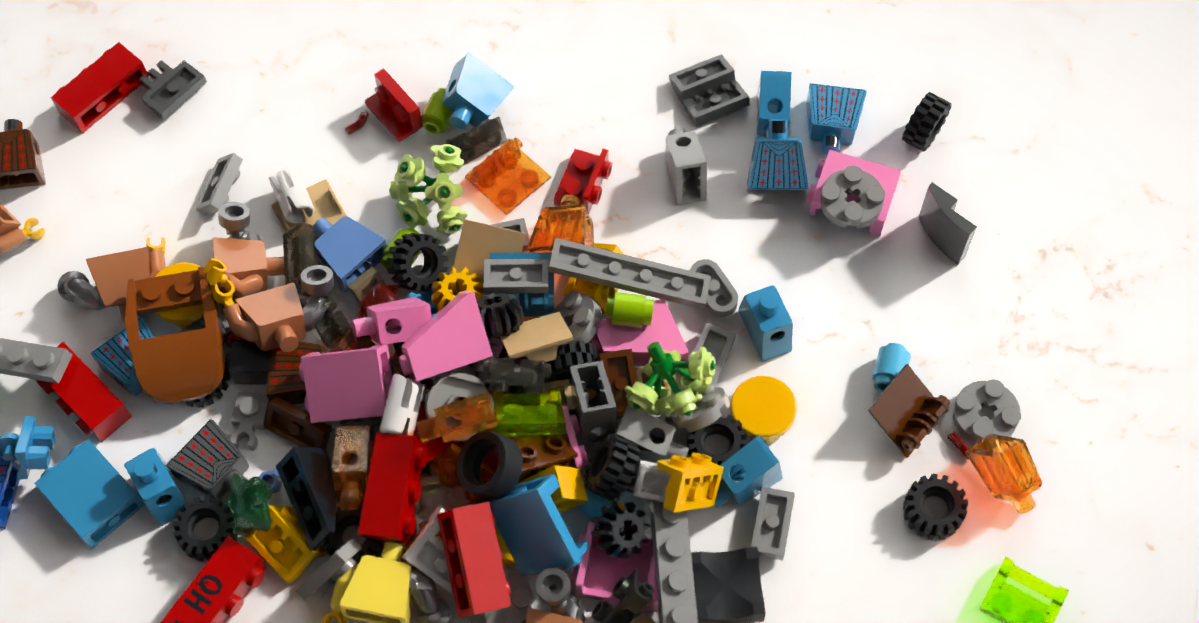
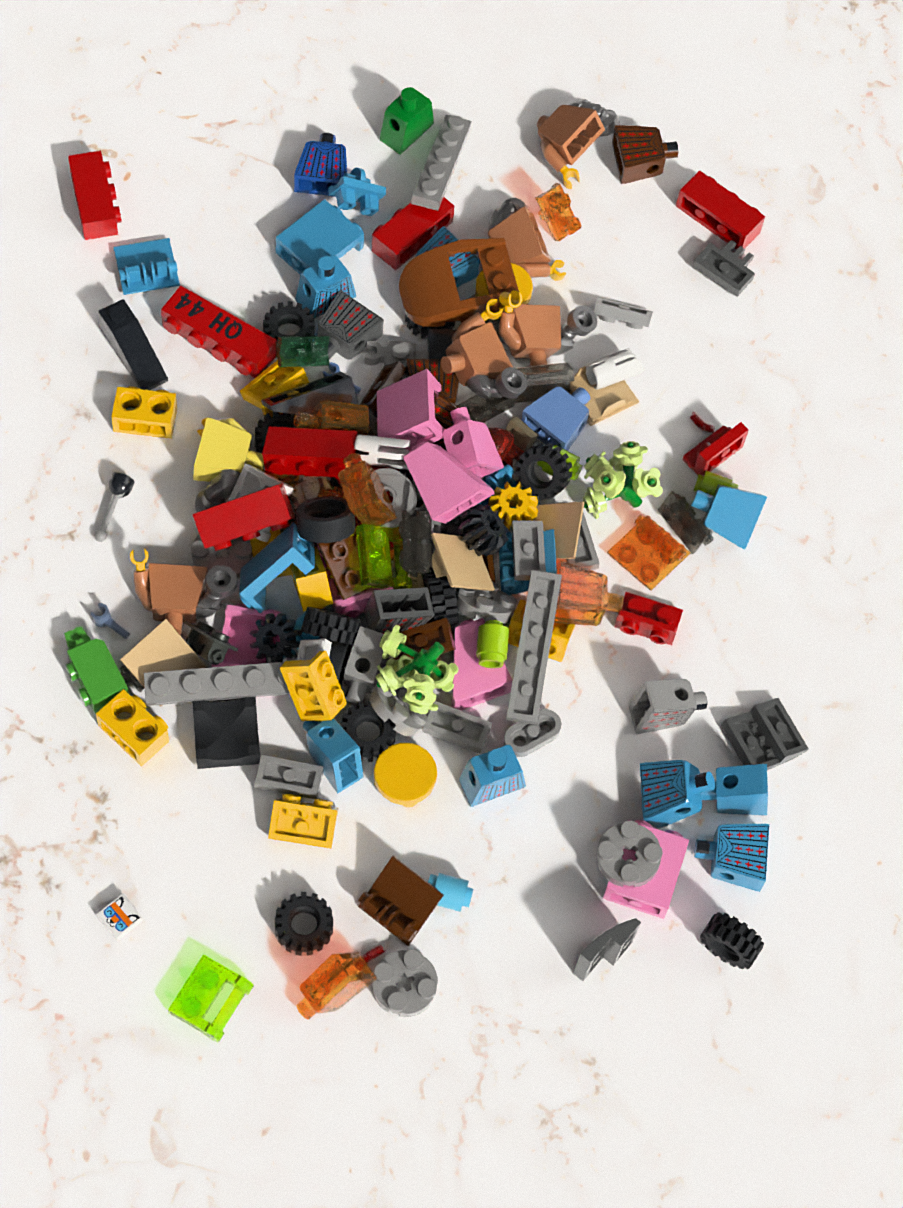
camera: 80 degrees right, 0 degrees up
(84, 239) = (557, 212): none -> clear orange hips
(338, 563) = (243, 415): light grey plate -> none
(821, 507) = (303, 821): none -> yellow bracket

